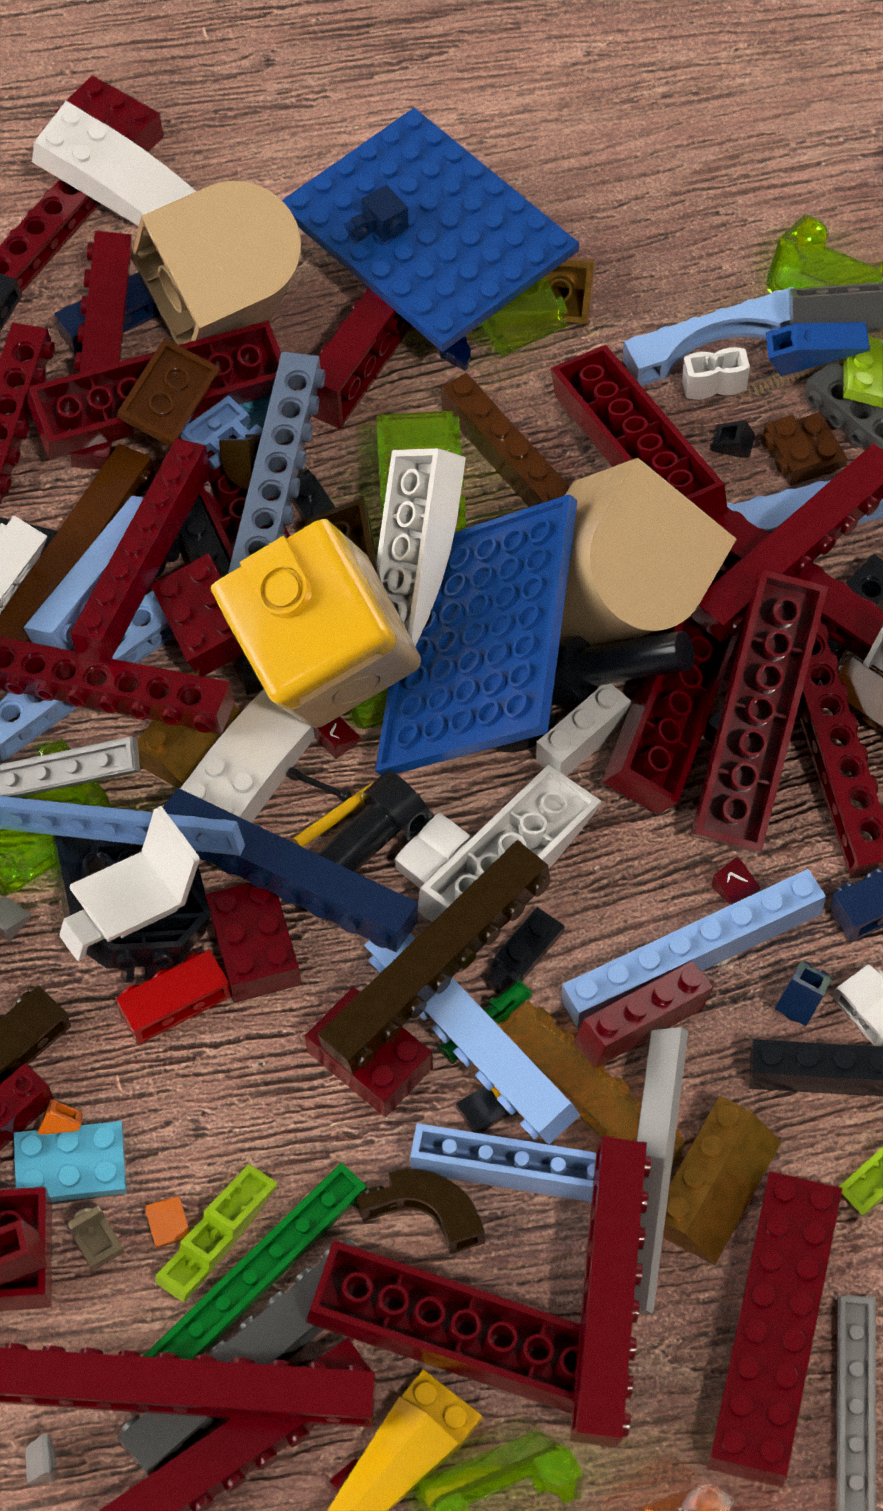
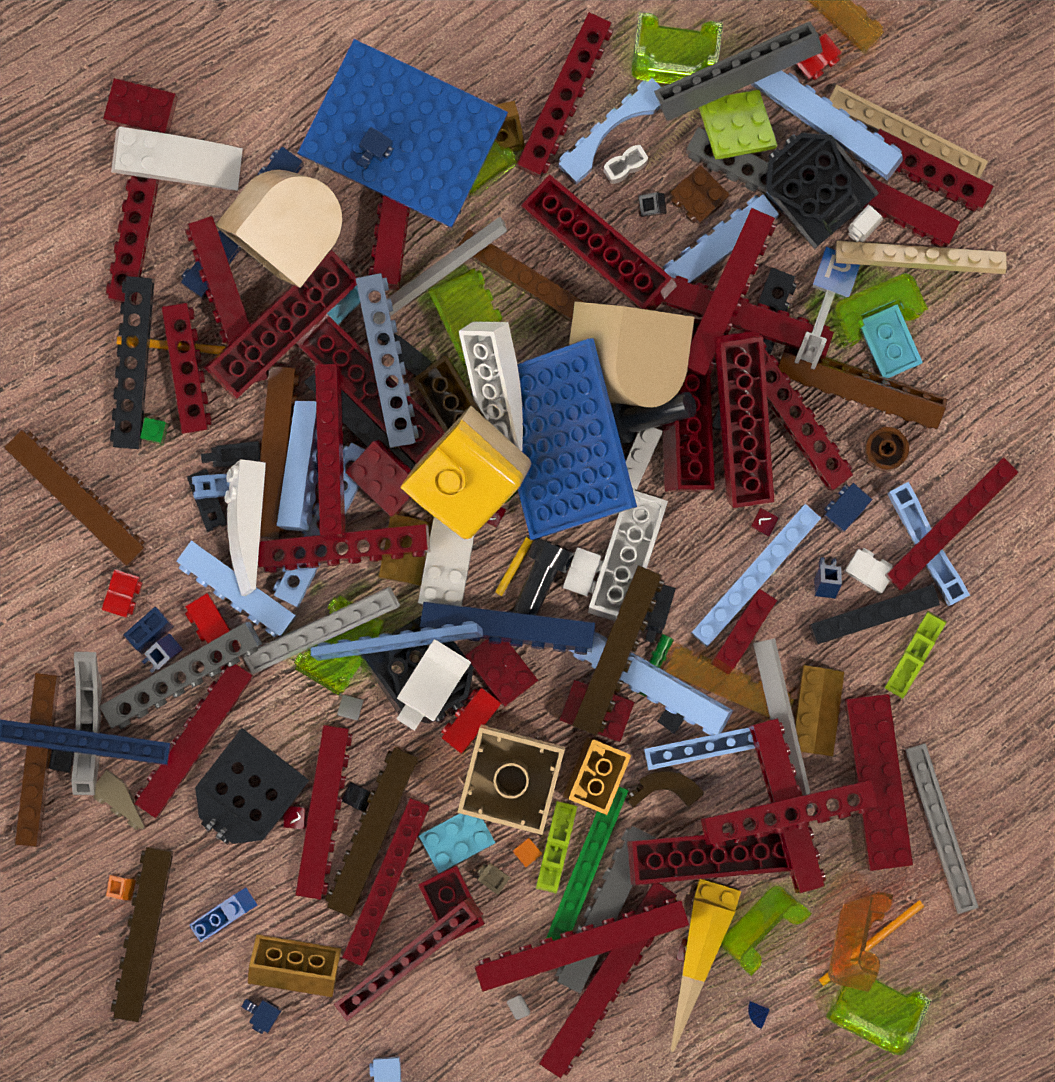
camera: 20 degrees left, 25 degrees up
(59, 1119) = (440, 818): orange slope -> none
(168, 392) = (295, 333): reddish brown plate -> none
(190, 1071) = (511, 779): none -> tan brick
(219, 423) = (330, 338): medium blue plate -> none
(239, 458) = (359, 357): dark brown brick -> none
(295, 774) = (512, 551): black hinge -> none
(326, 1142) = (597, 775): none -> pearl gold slope
(413, 398) = (444, 266): none -> light grey tile
(666, 276) = (592, 26): none -> dark red brick
(740, 1301) = (862, 791): none -> dark red brick
(814, 344) = (685, 125): blue slope -> none

